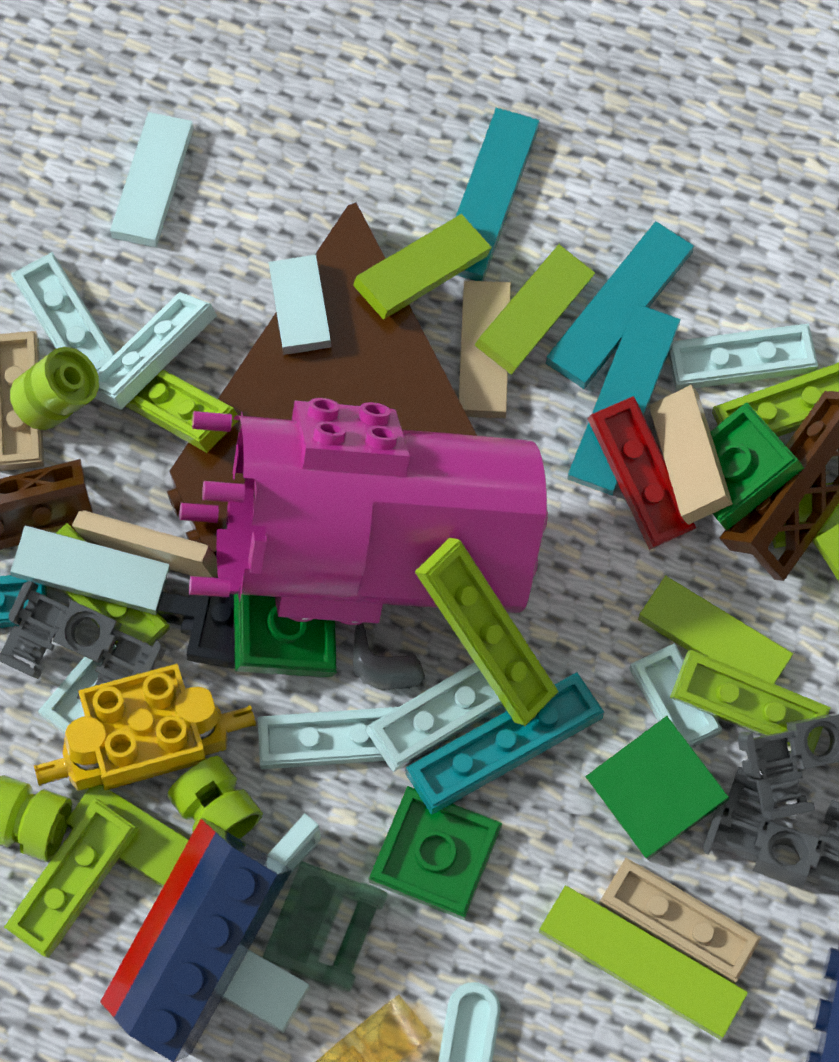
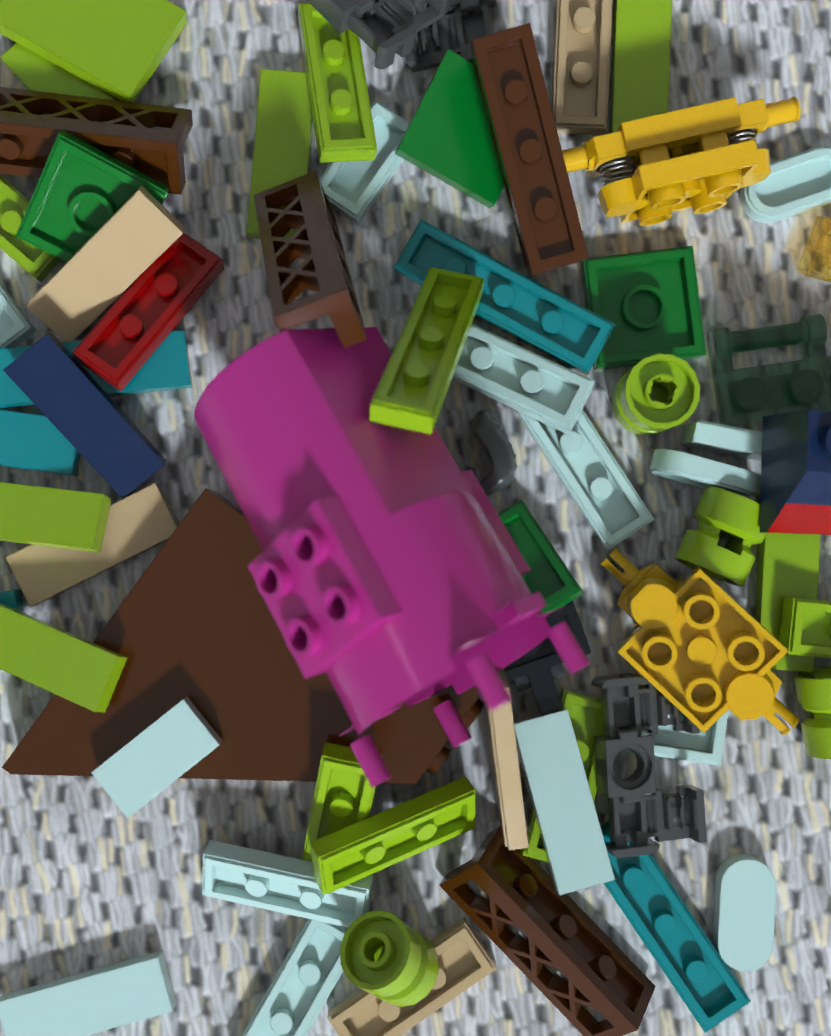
camera: 125 degrees left, 20 degrees up
(141, 438) = (393, 835): none -> lime tile
(277, 815) = (704, 472): none -> light aqua tile
(357, 808) = (655, 395): none -> lime wheel
(511, 948) = (681, 158): none -> yellow piece
(582, 386) = (85, 414): none -> dark blue tile
(603, 799) = (528, 150): none -> reddish brown fence
(608, 599) = (324, 263): none -> reddish brown fence

